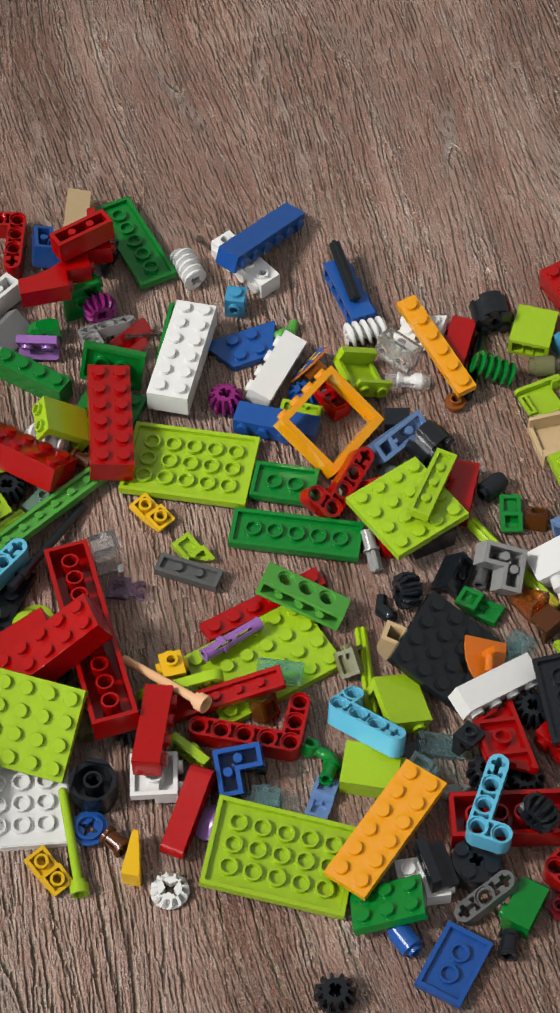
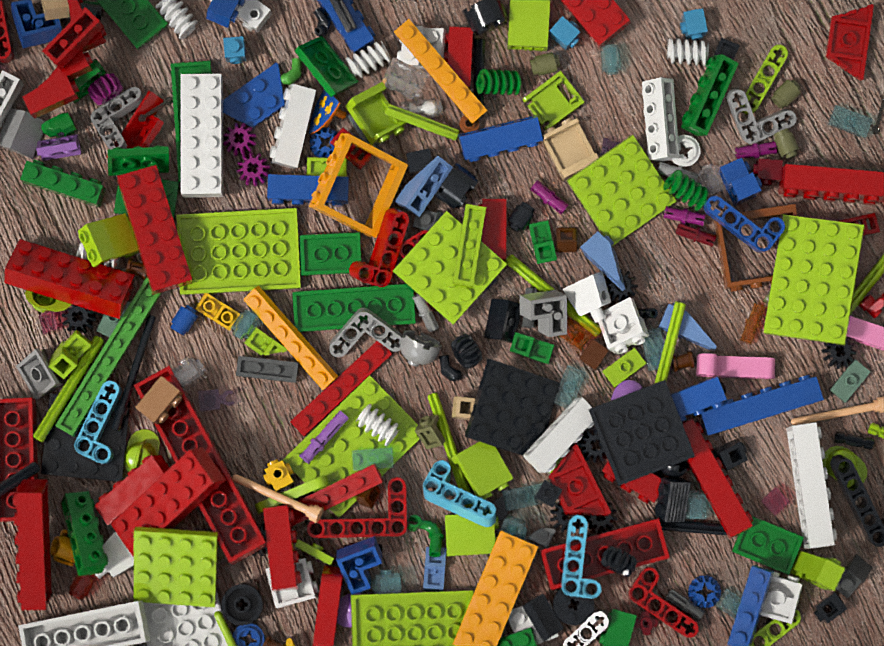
camera: 15 degrees left, 30 degrees up
(65, 561) = (159, 401): none -> medium nougat brick
(115, 511) = (184, 320): none -> blue brick
(176, 527) = (244, 325): none -> clear light blue brick
(218, 371) = (247, 137): none -> magenta gear
(221, 546) = (290, 337): none -> light orange plate
(294, 637) = (378, 425): none -> white piece
(303, 596) = (346, 381): bright green brick -> none
(307, 549) = (368, 327): none -> light grey beam
(320, 325) = (326, 66): none -> green plate
(328, 299) = (323, 22): none -> black arm
(356, 580) = (419, 348): none -> light grey cylinder
(406, 386) = (421, 122): none -> lime axle
(483, 654) = (546, 405): orange shield -> none
(485, 413) = (500, 137): none -> blue brick
(525, 477) = (549, 197): none -> magenta pin

